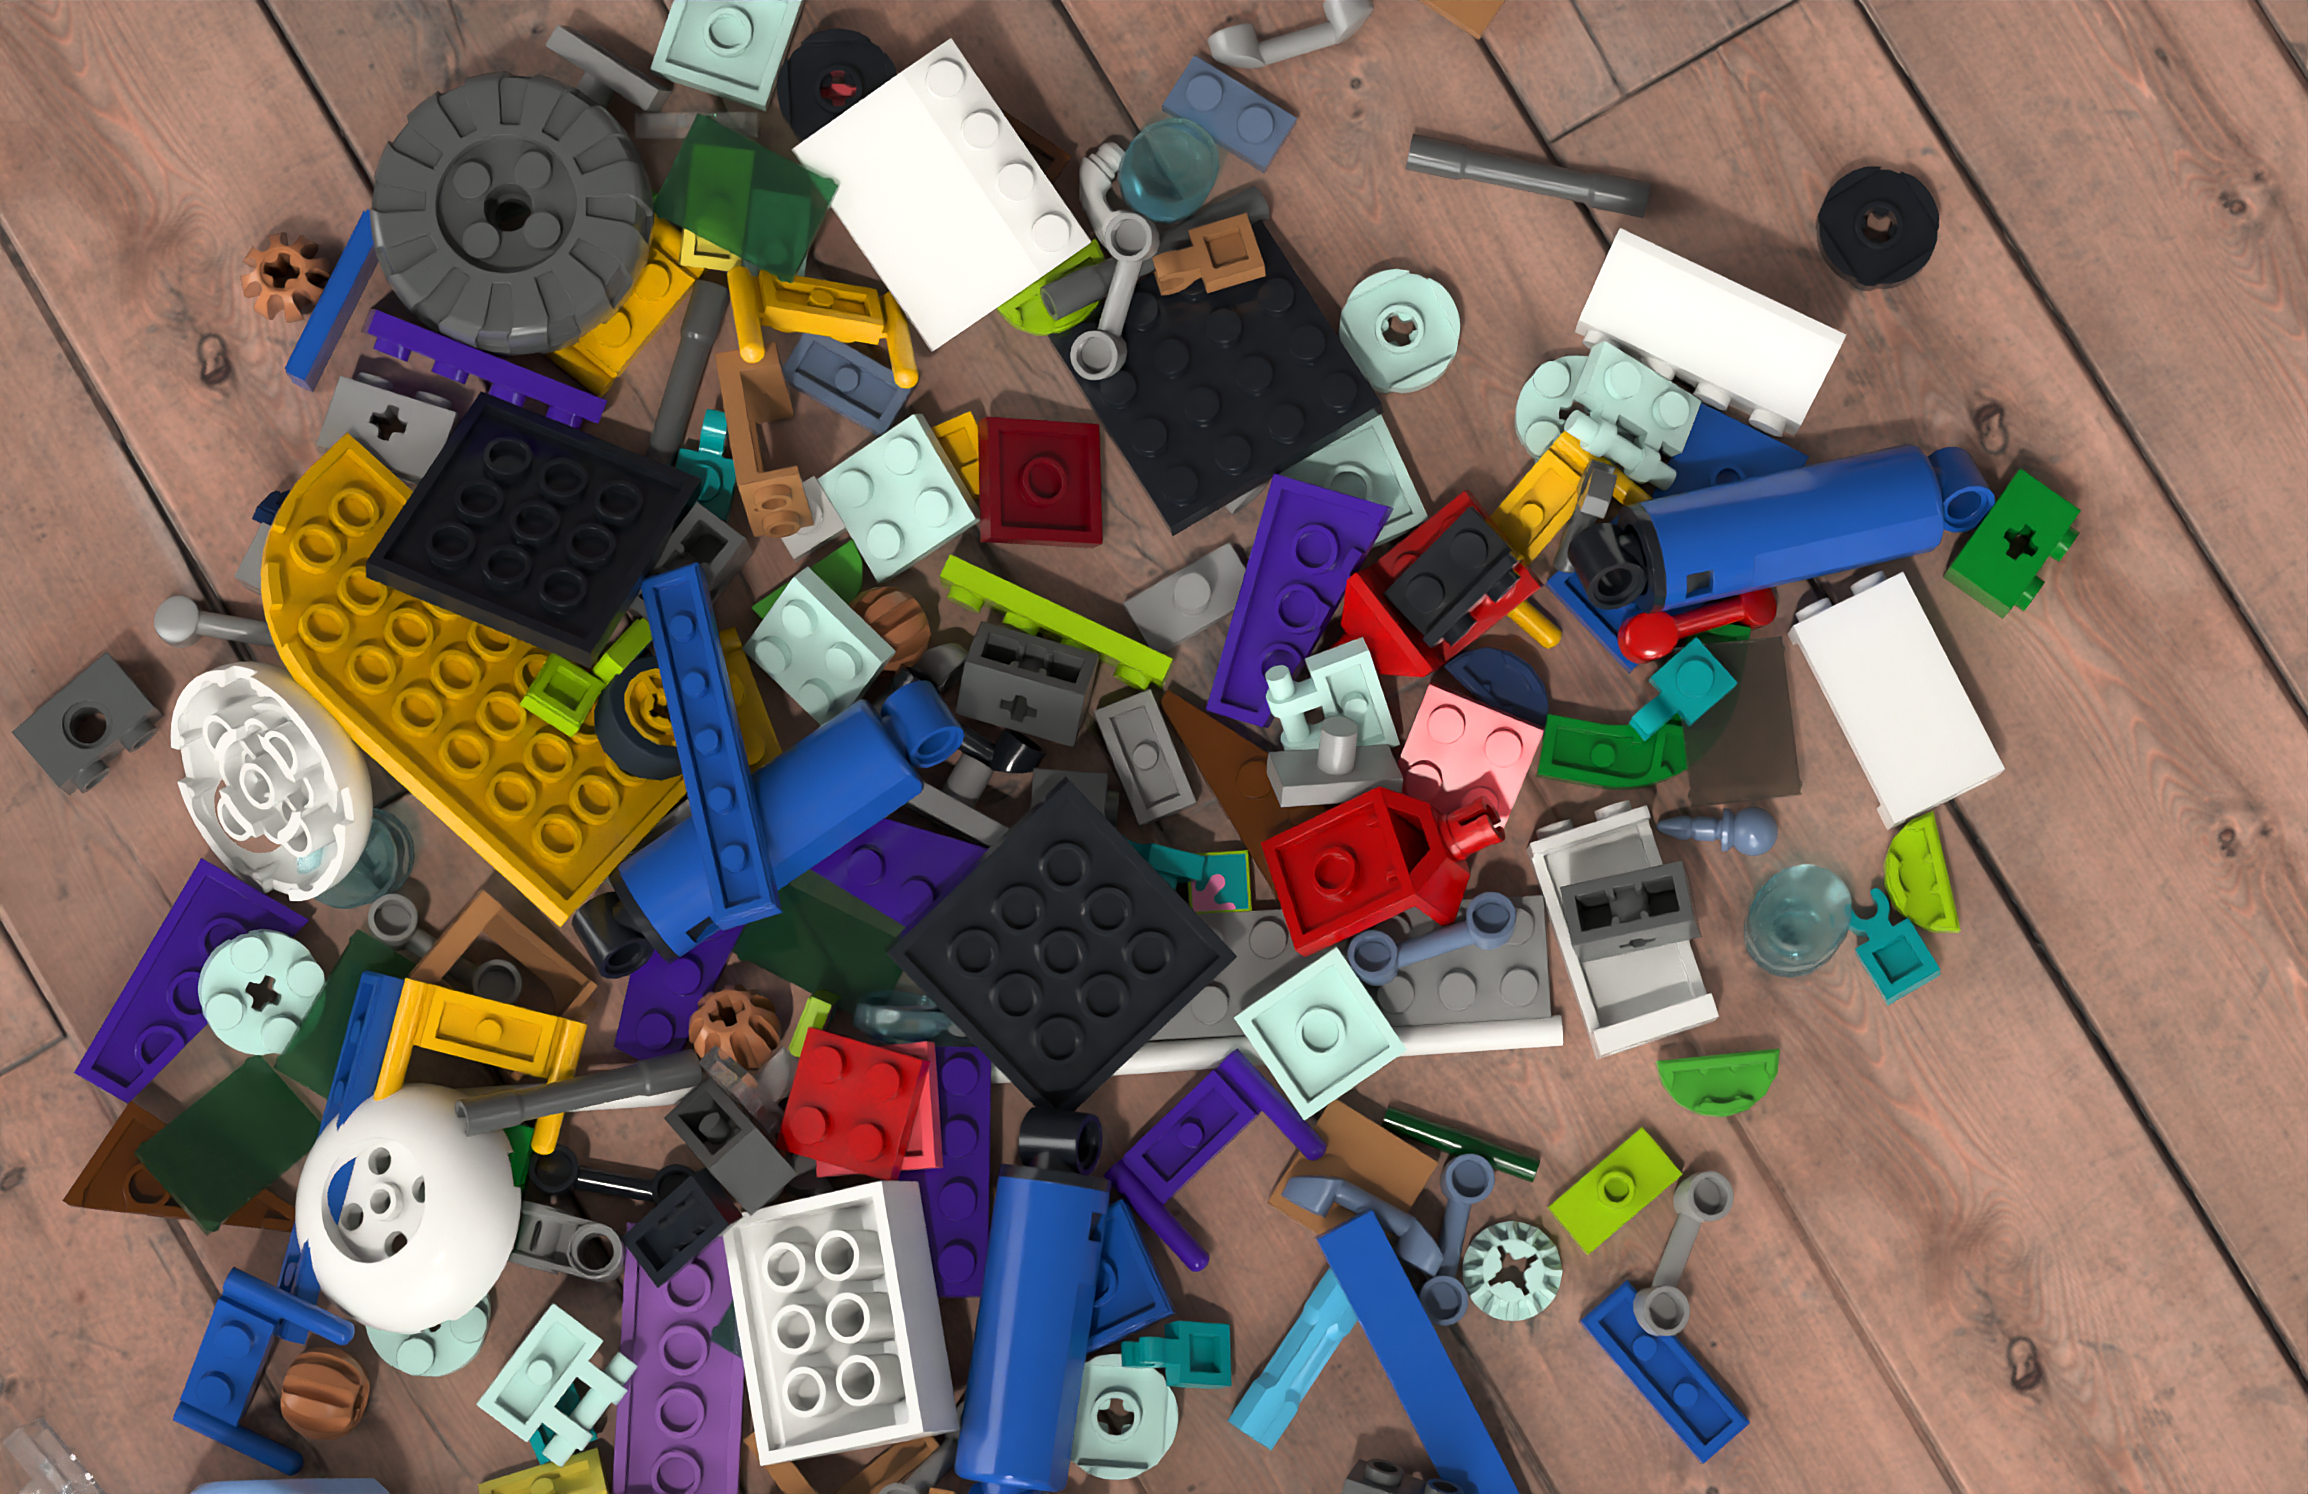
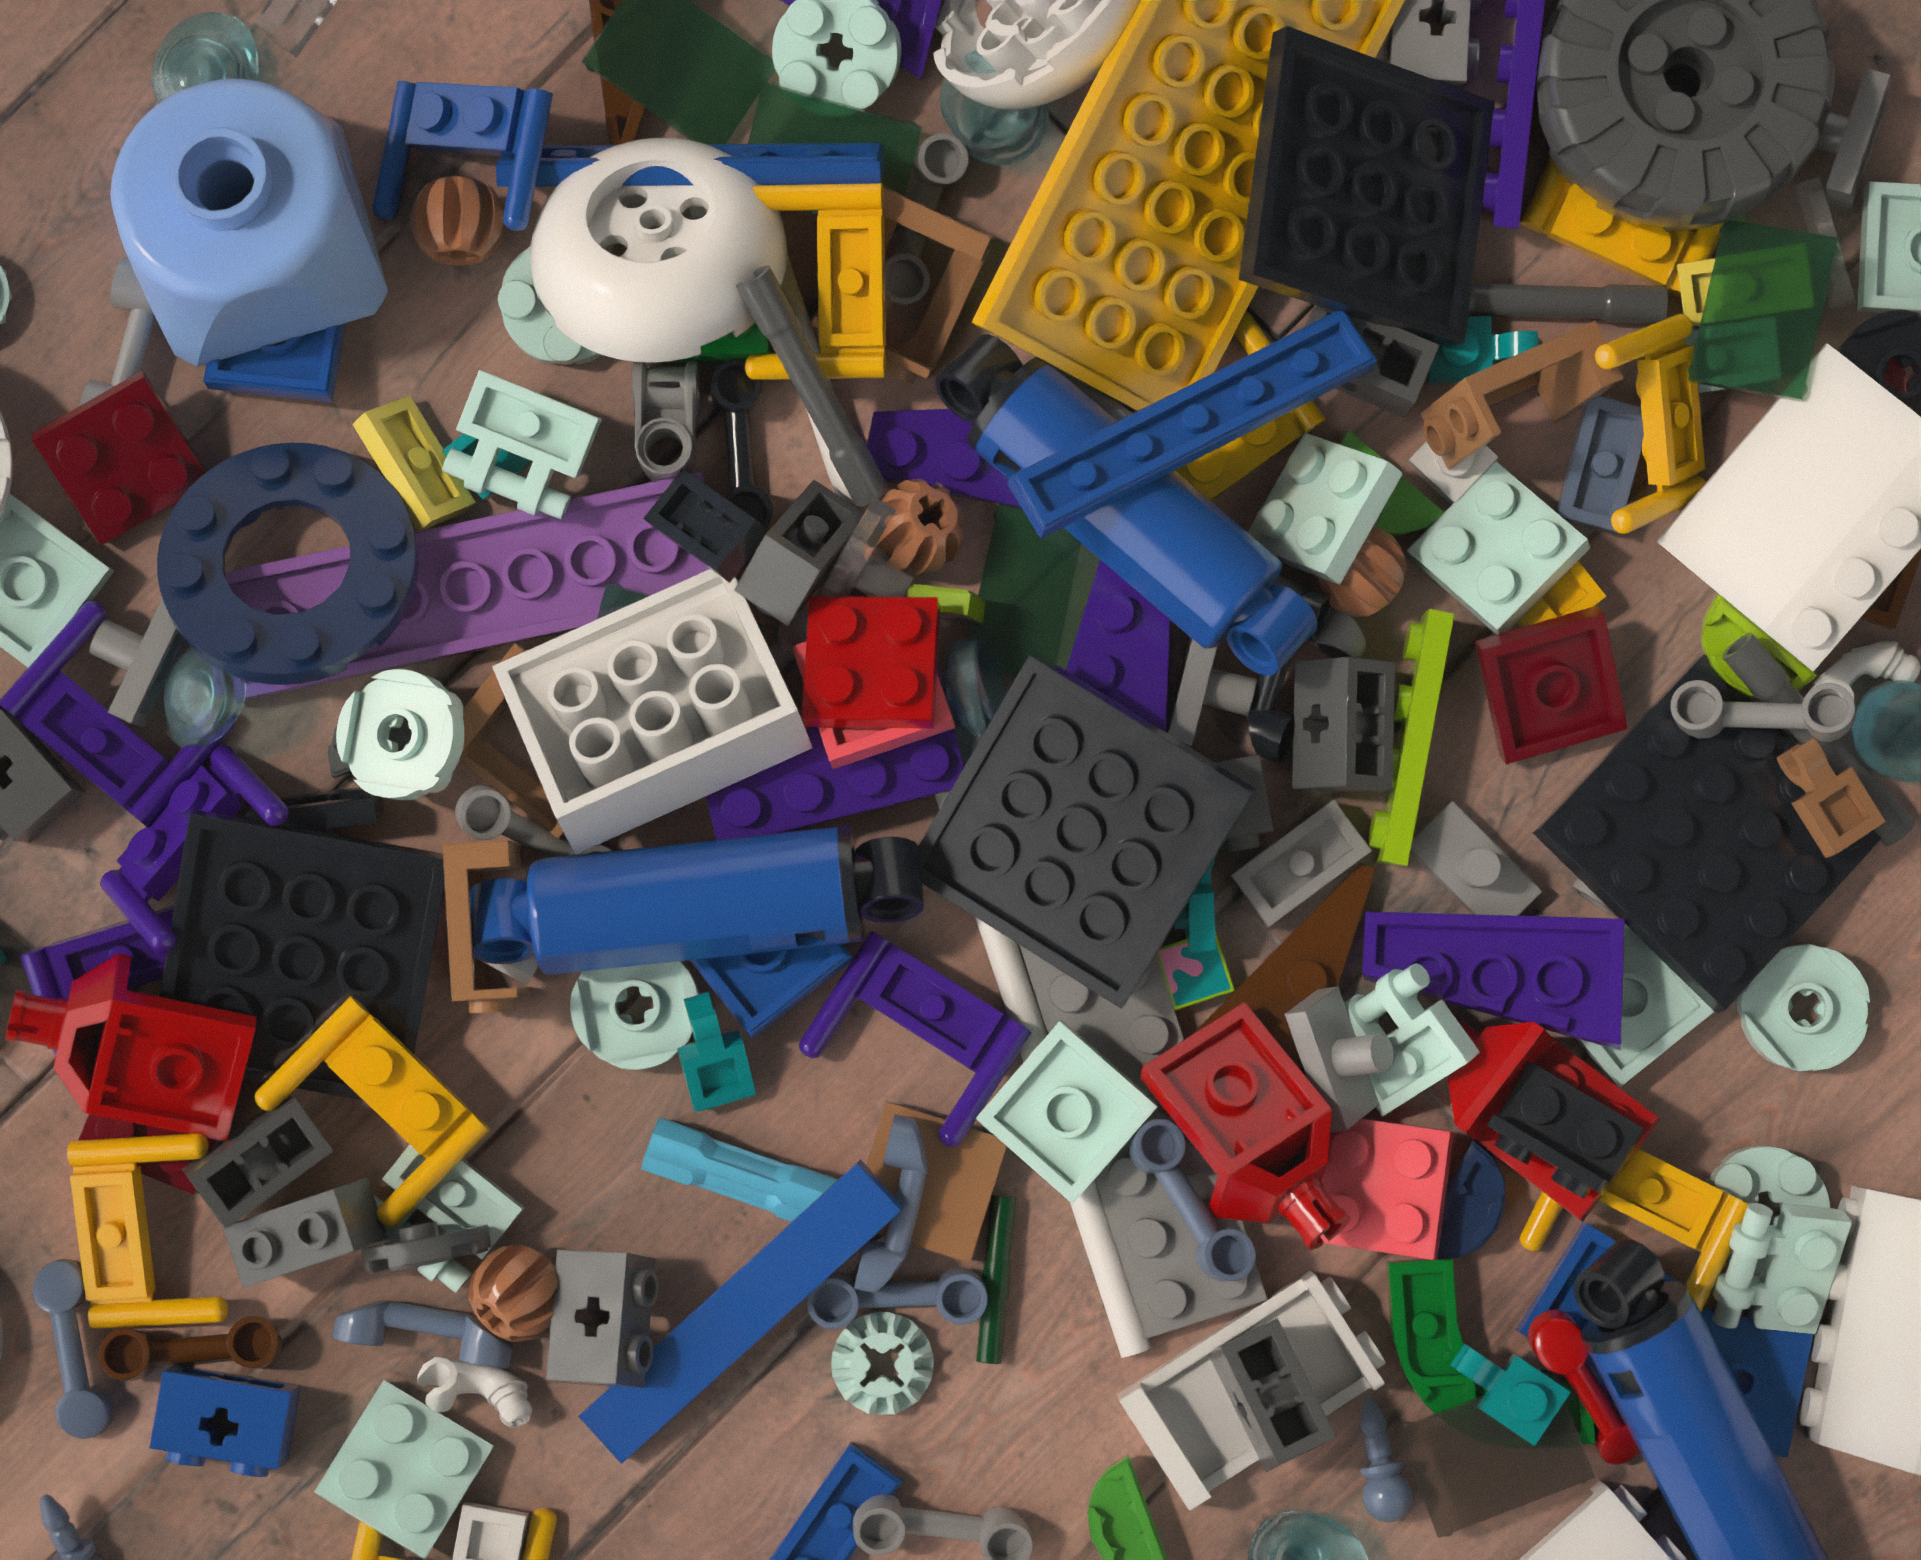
camera: 70 degrees right, 5 degrees up
(562, 694) = (1207, 263): lime tile -> none
(623, 651) = (1262, 311): lime tile -> none
(626, 728) = (1191, 335): black wheel -> none
(1593, 499) = (1685, 1252): dark grey bar -> none
(1614, 1191) = (988, 1446): lime plate -> none

